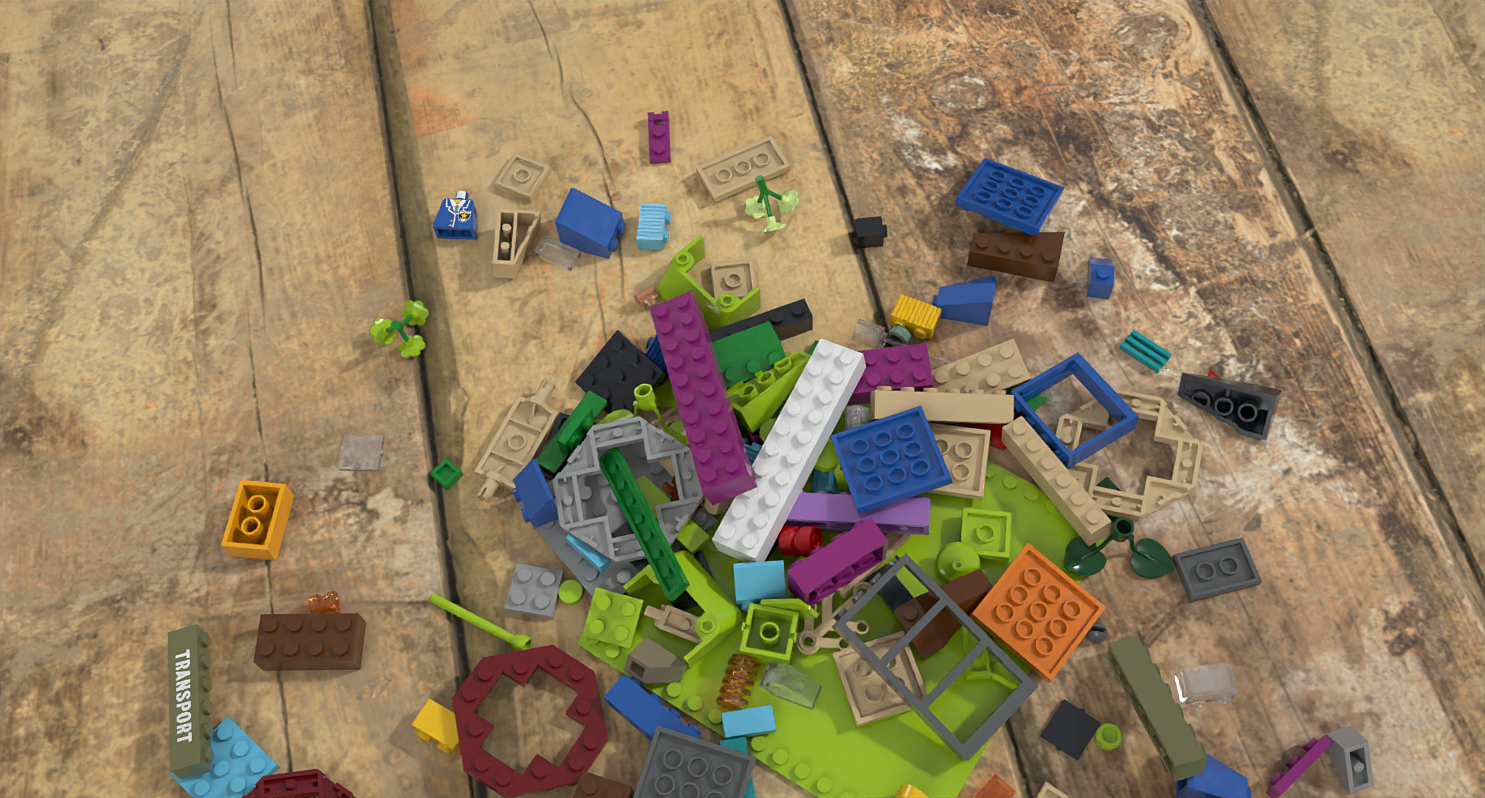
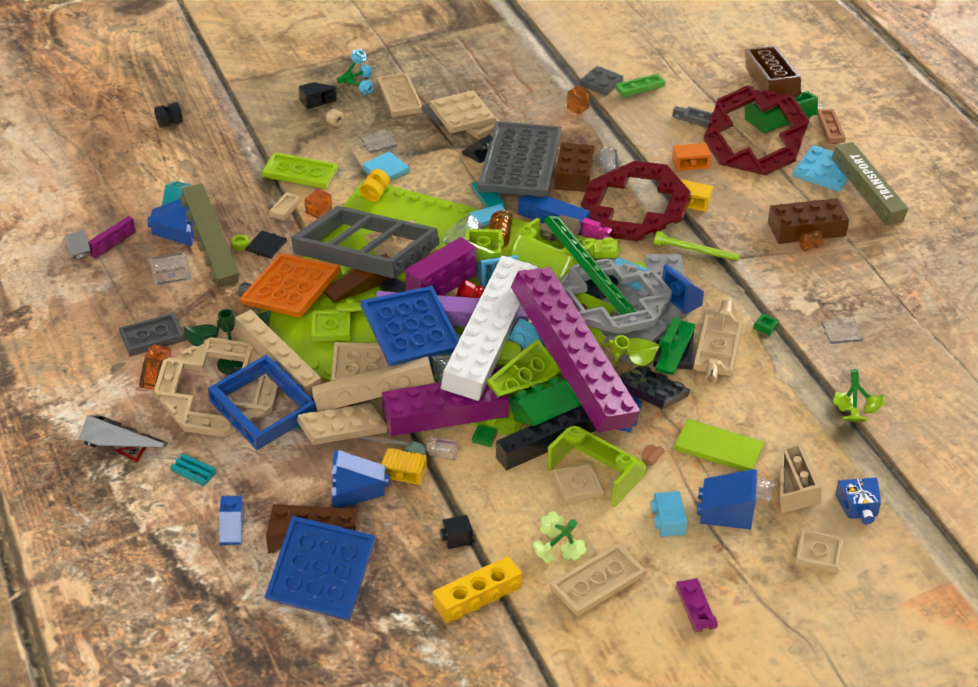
camera: 165 degrees right, 20 degrees down
(258, 520) = (890, 272): light orange brick -> none
(571, 306) = (719, 445): none -> lime tile
(609, 673) = (593, 229): none -> dark pink plate
(859, 170) = (477, 589): none -> yellow brick
(1204, 502) = (152, 365): none -> clear orange slope

